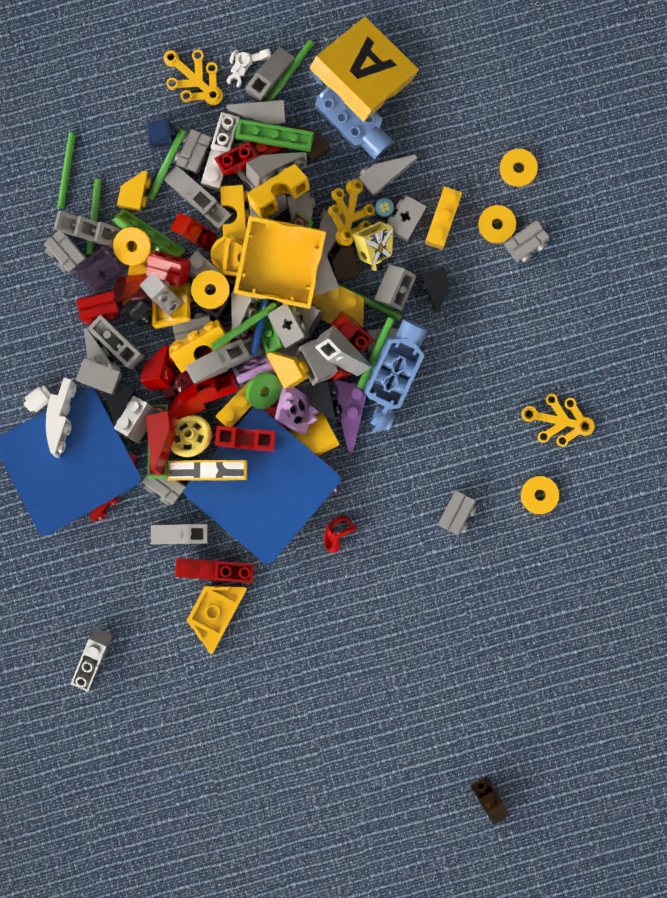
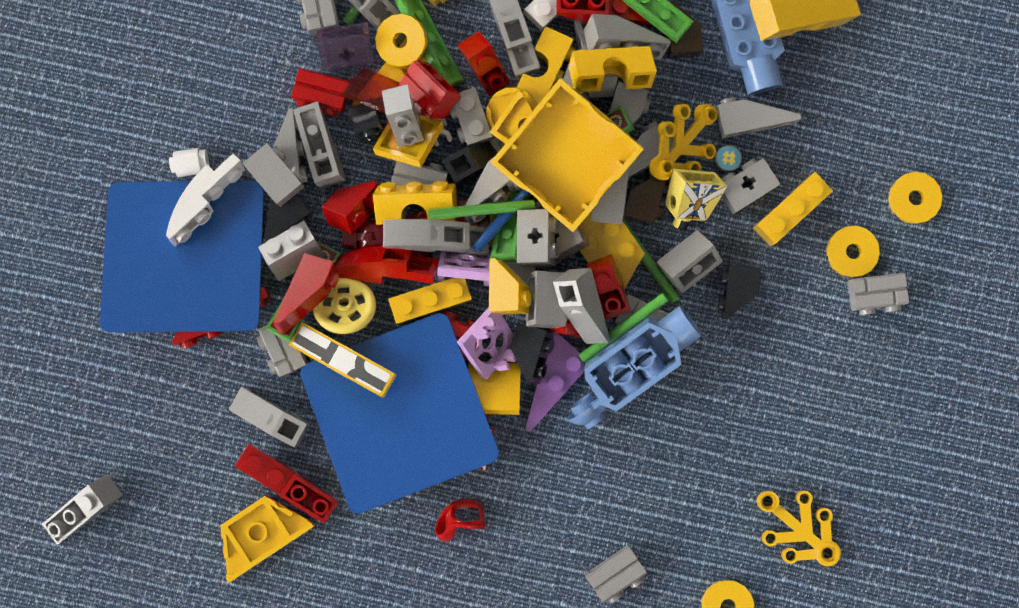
camera: 25 degrees right, 0 degrees up
(210, 278) = (461, 128): yellow tile -> none
(246, 439) = (409, 347): red arch -> none
(270, 396) = (463, 311): bright green tile -> none

